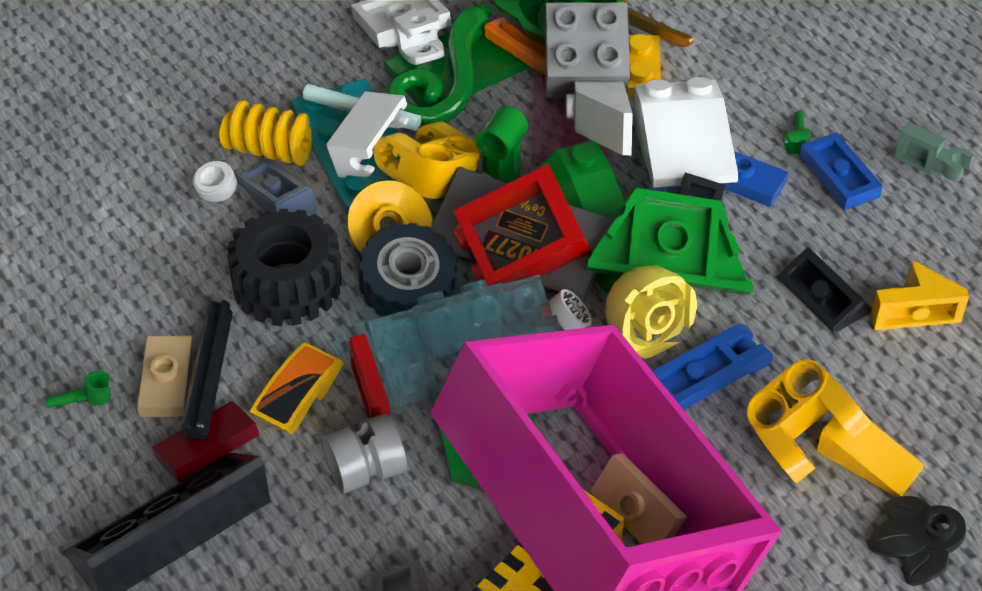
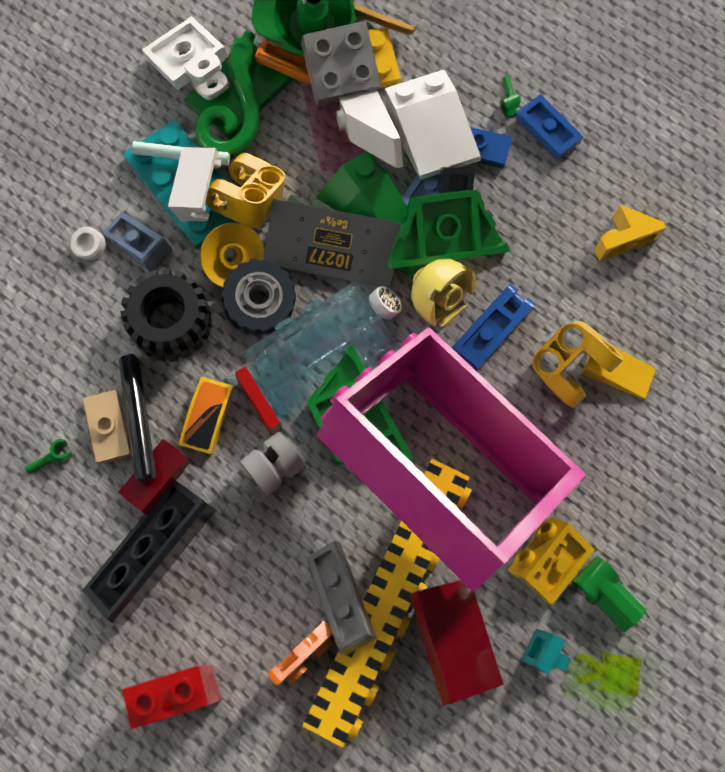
camera: 15 degrees left, 25 degrees up
(267, 133) = (114, 194): yellow piece -> none
(501, 143) = (299, 168): green piece -> none
(539, 262) = (362, 228): red window -> none
(645, 508) = (473, 455): tan plate -> none
(823, 291) = (558, 238): black slope -> none
(911, 537) = (660, 433): pearl dark grey plate -> none
(926, 152) = (608, 96): sand green plate -> none

